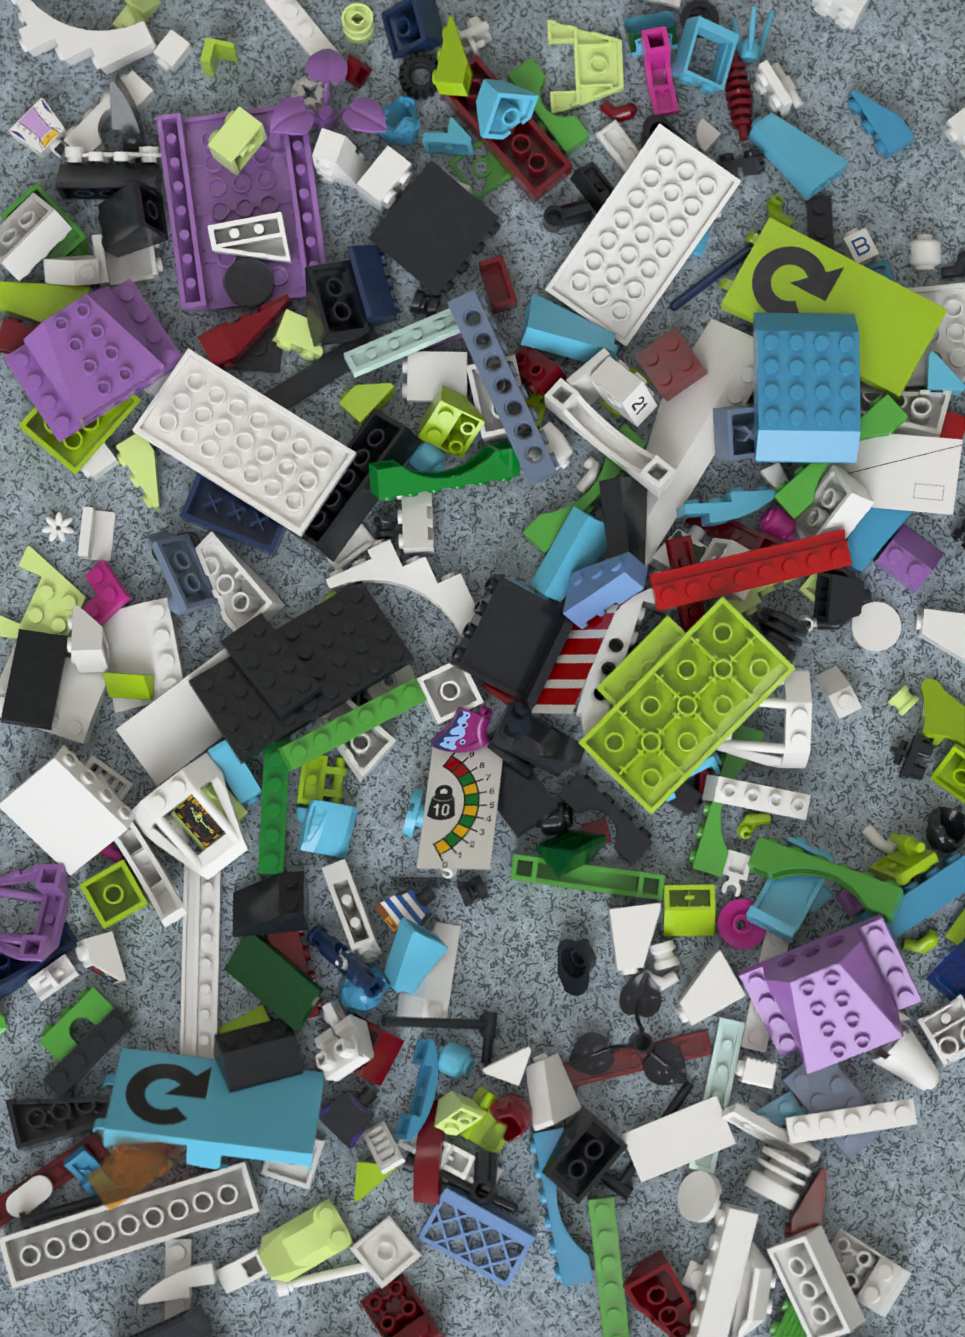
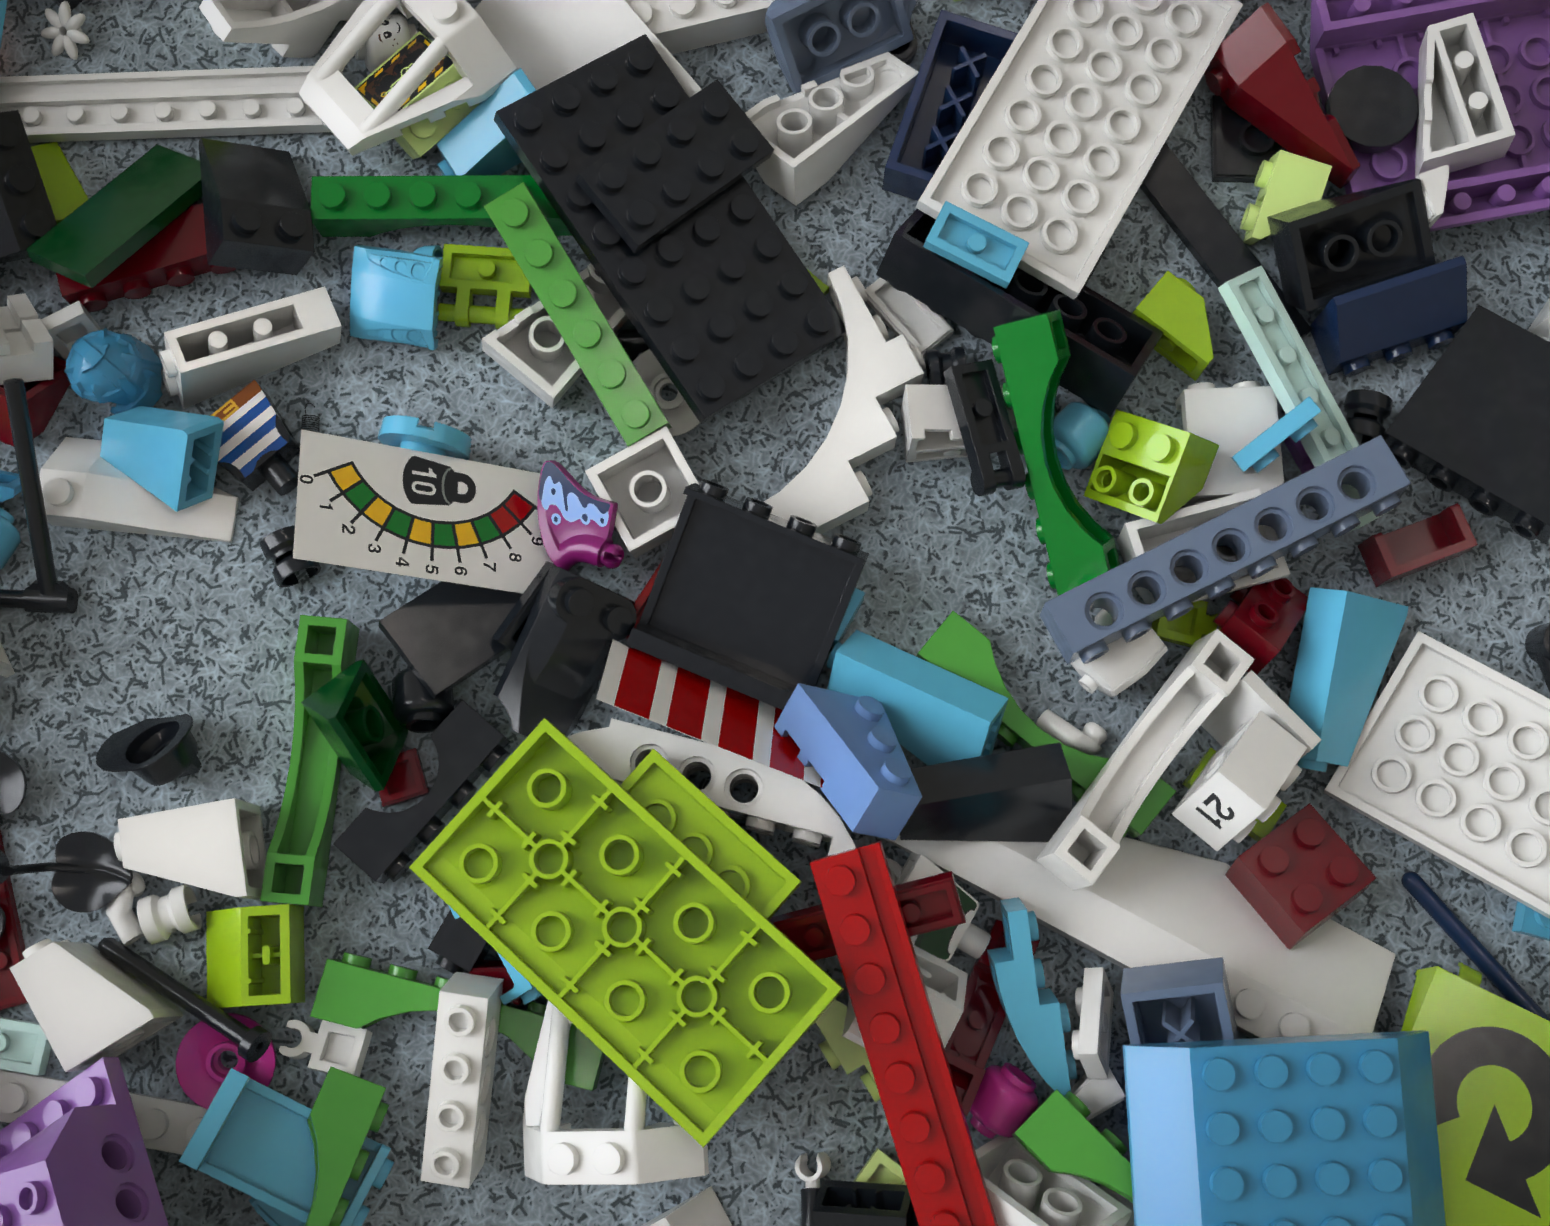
camera: 85 degrees right, 5 degrees down
(150, 1023) = (65, 30): none -> white plant
(310, 259) = (1434, 191): none -> white slope
(329, 505) = (976, 244): none -> medium azure plate
(345, 961) = (131, 340): dark blue piece -> none
(428, 507) = (985, 427): none -> black plate
(446, 362) = (1294, 424): none -> medium azure plate
(732, 474) = (1095, 1011): none -> white plate
(733, 905) = (251, 1041): none -> black bar
(750, 822) = (416, 1065): lime arm -> none
(781, 631) = (785, 1112): black wheel -> none

